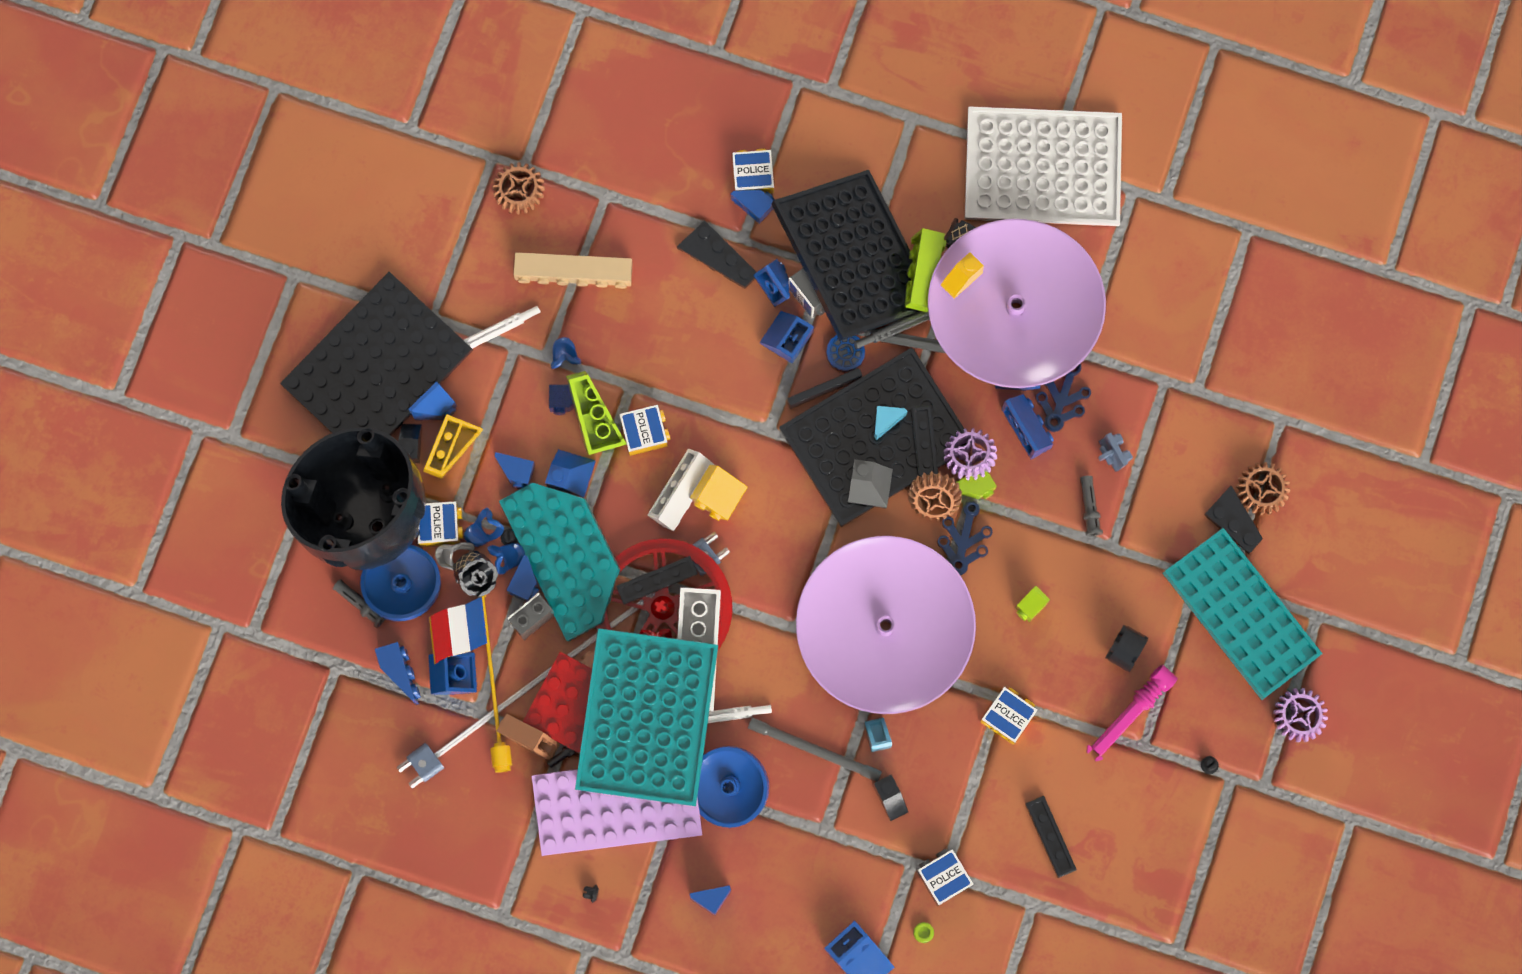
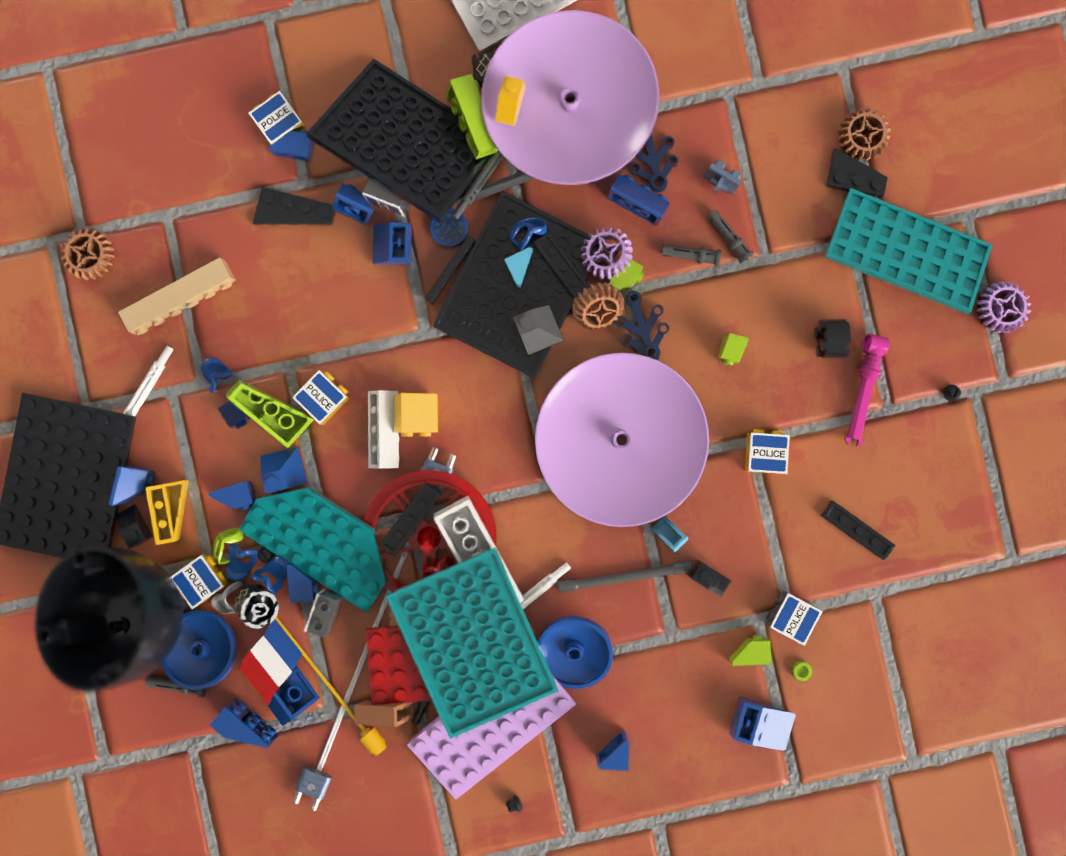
camera: 30 degrees left, 10 degrees up
(491, 502) = (231, 535): none -> lime piece
(890, 886) = (752, 652): none -> lime slope
(921, 392) = (534, 225): none -> blue piece
(1054, 507) = (700, 255): none -> dark grey pin

